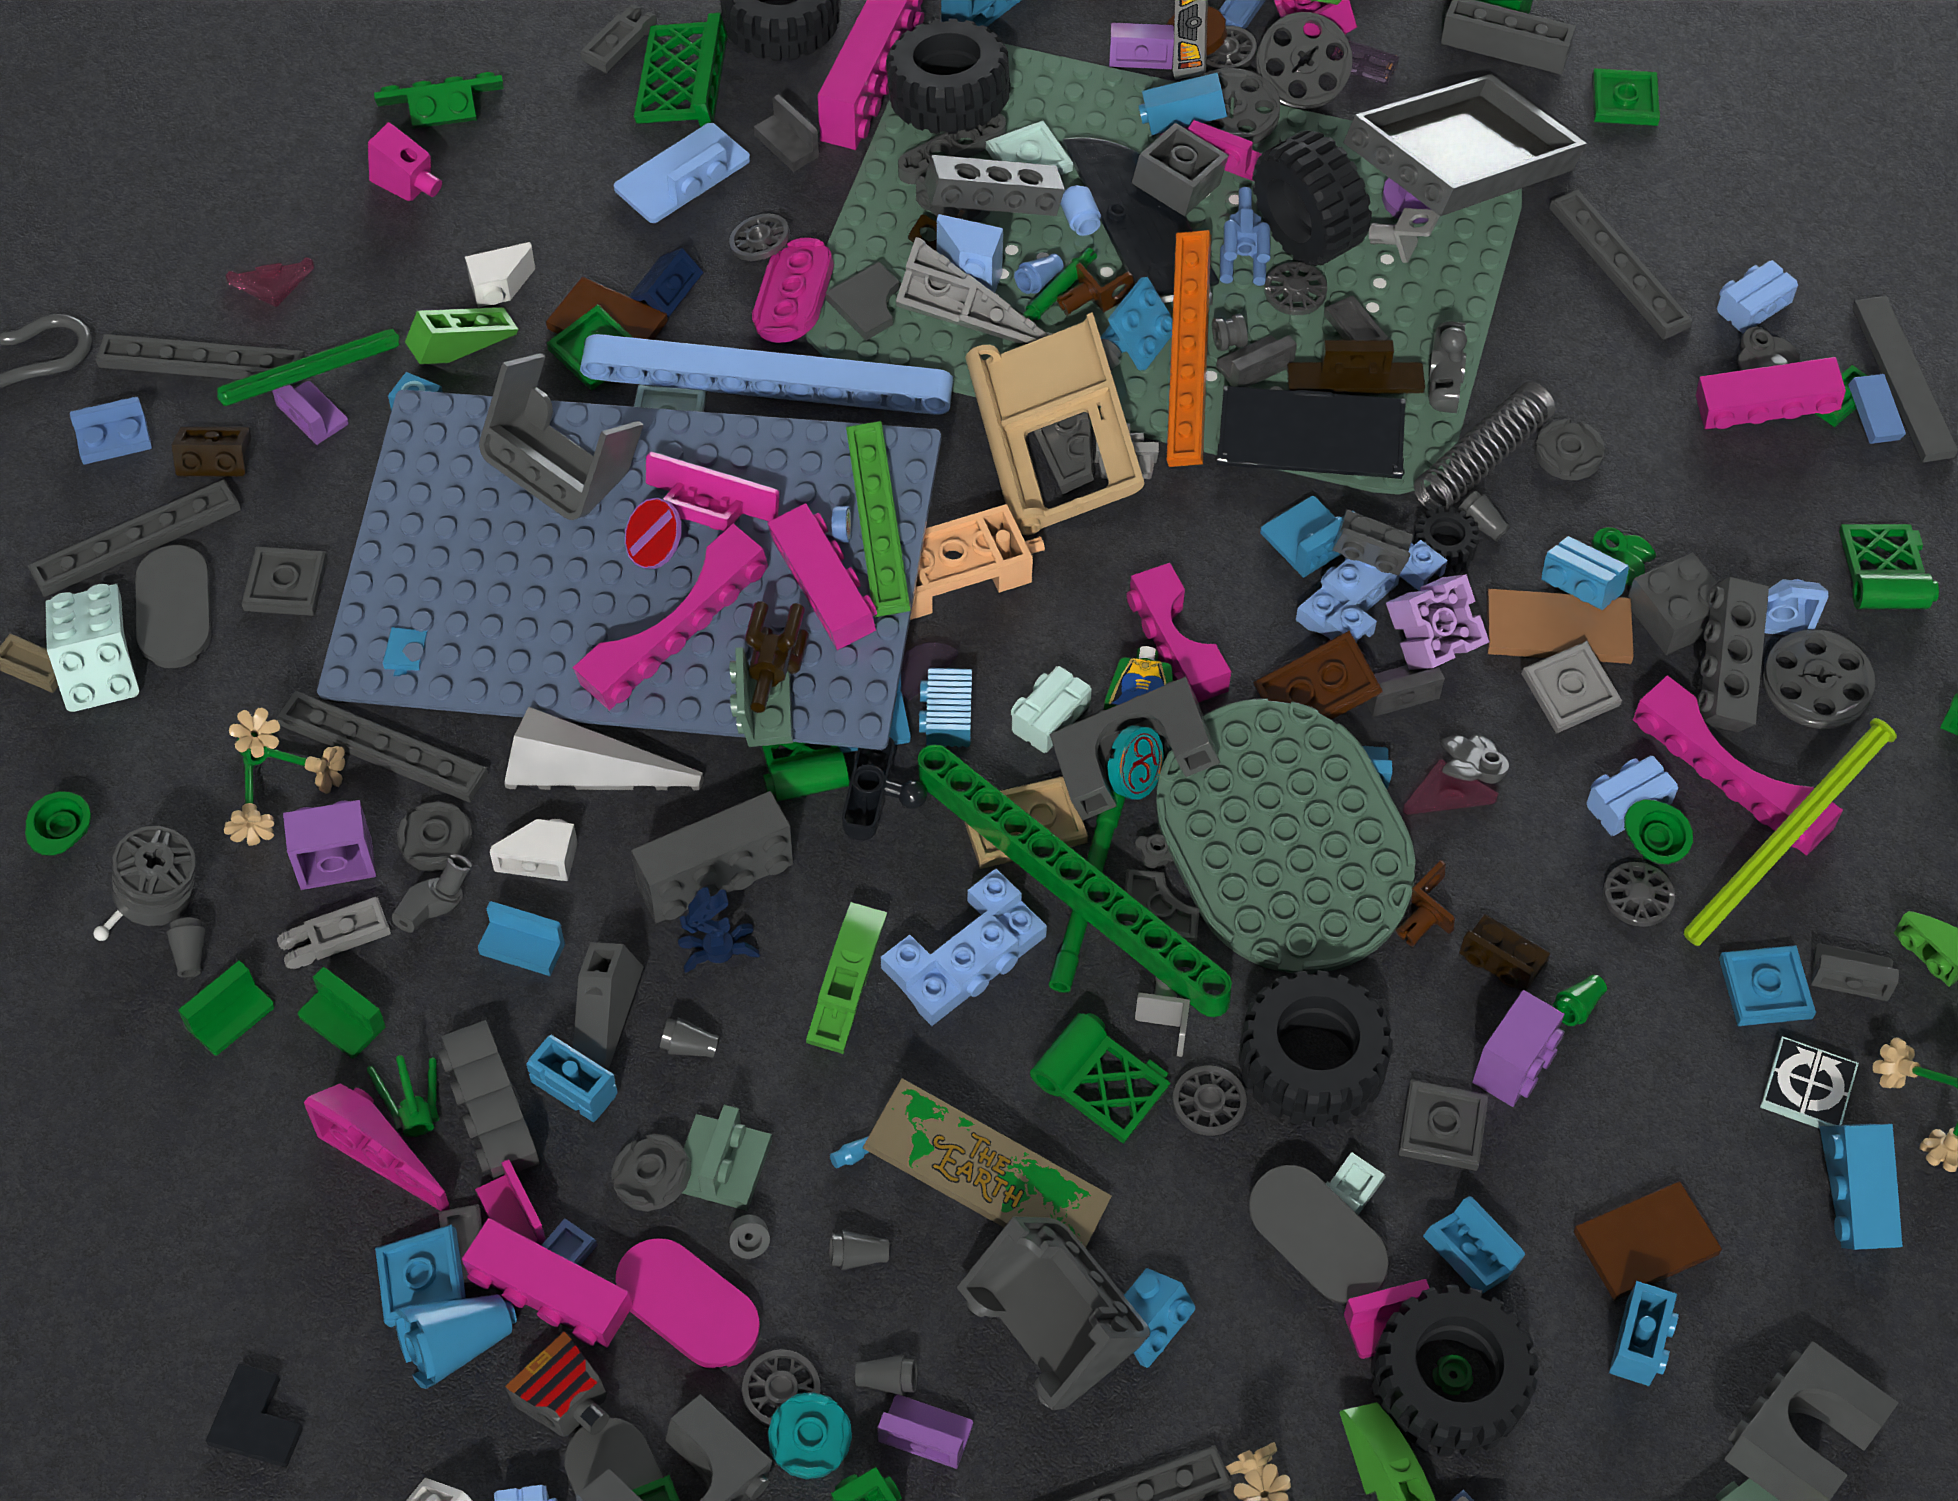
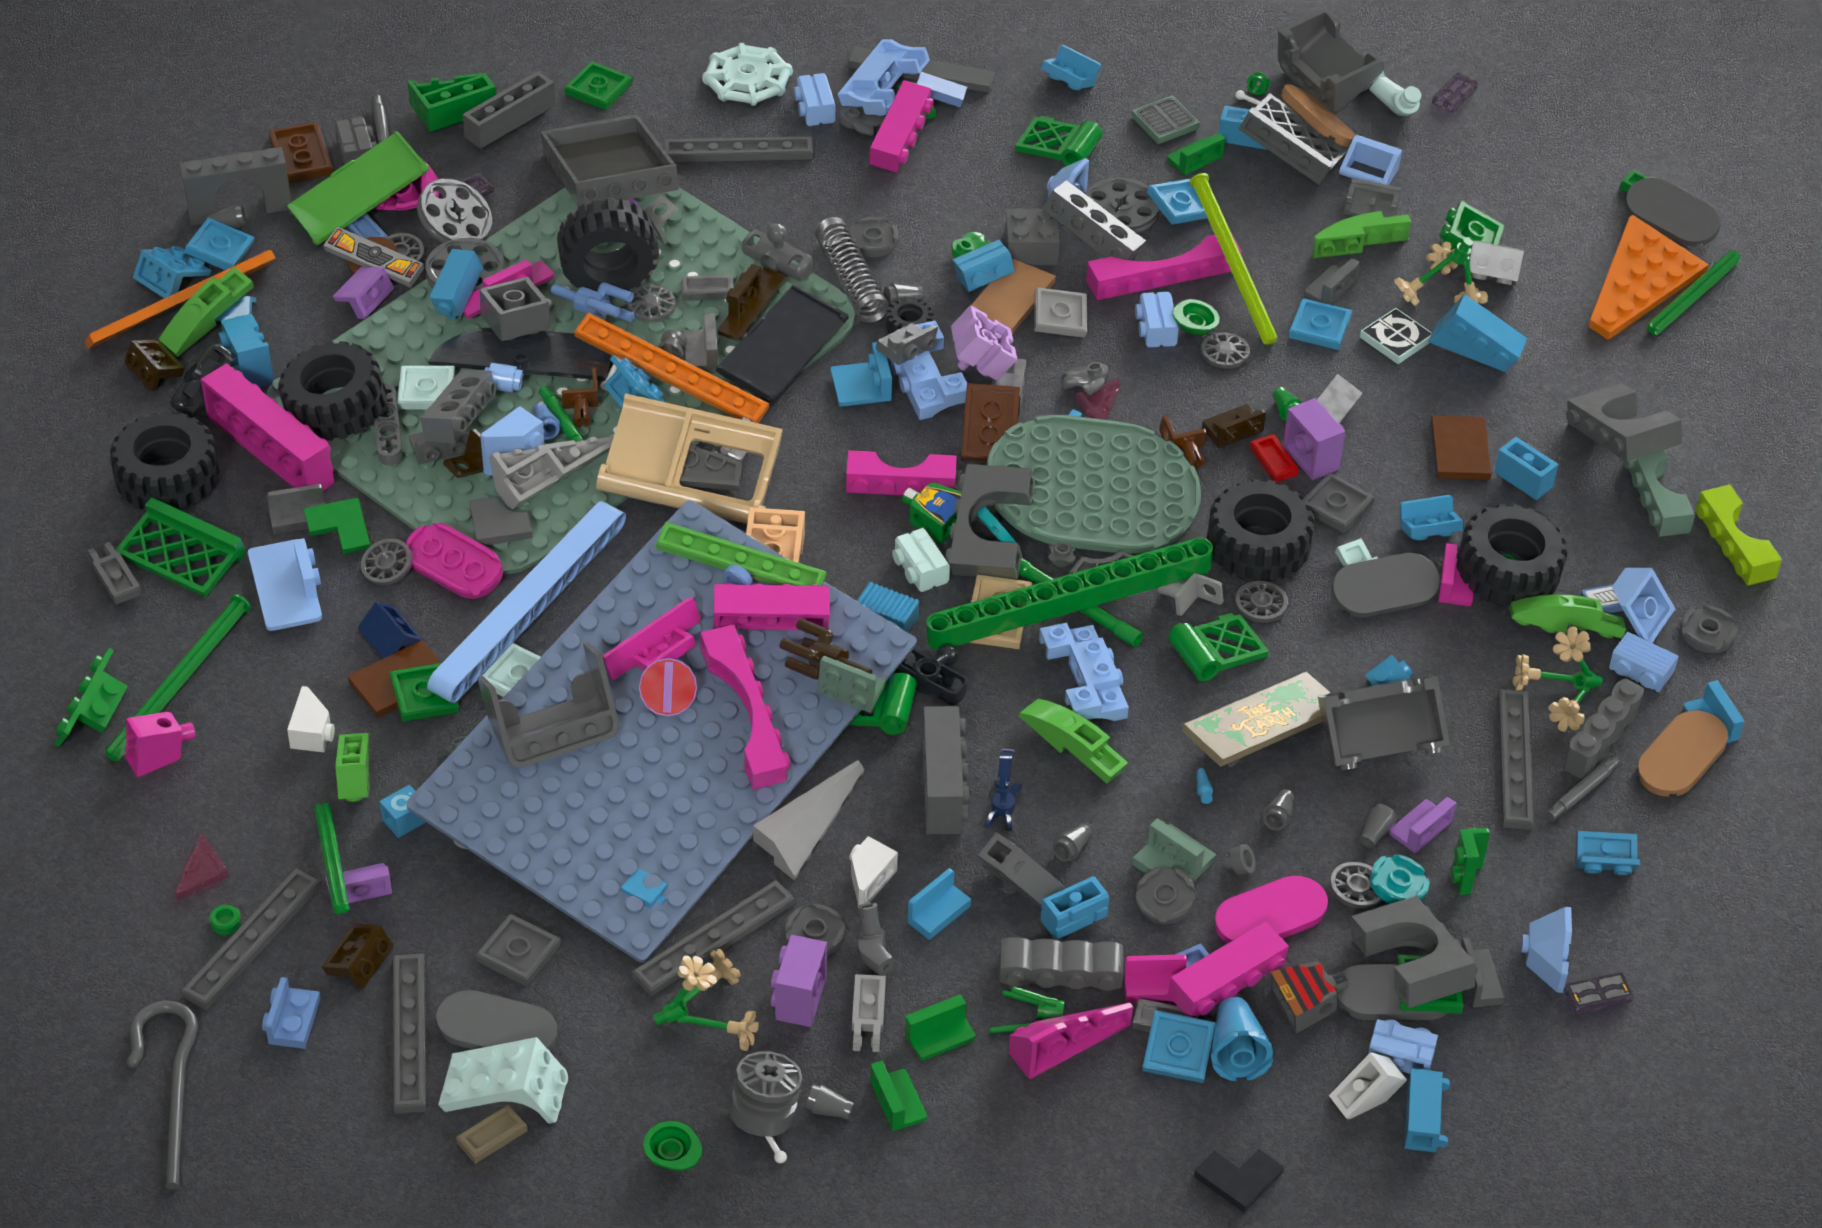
camera: 65 degrees left, 10 degrees down
(214, 327) = (225, 919): none -> green tile
(529, 148) = (185, 668): none -> green axle
(795, 176) = (342, 517): none -> green tile
(1475, 1022) = (1274, 458): none -> red tile
(1615, 1051) = (1339, 397): none -> flat silver brick
(1746, 195) = (734, 74): none -> light aqua plate
(1842, 334) = (878, 73): none -> light blue bracket
(1857, 722) = (1177, 201): none -> dark azure tile

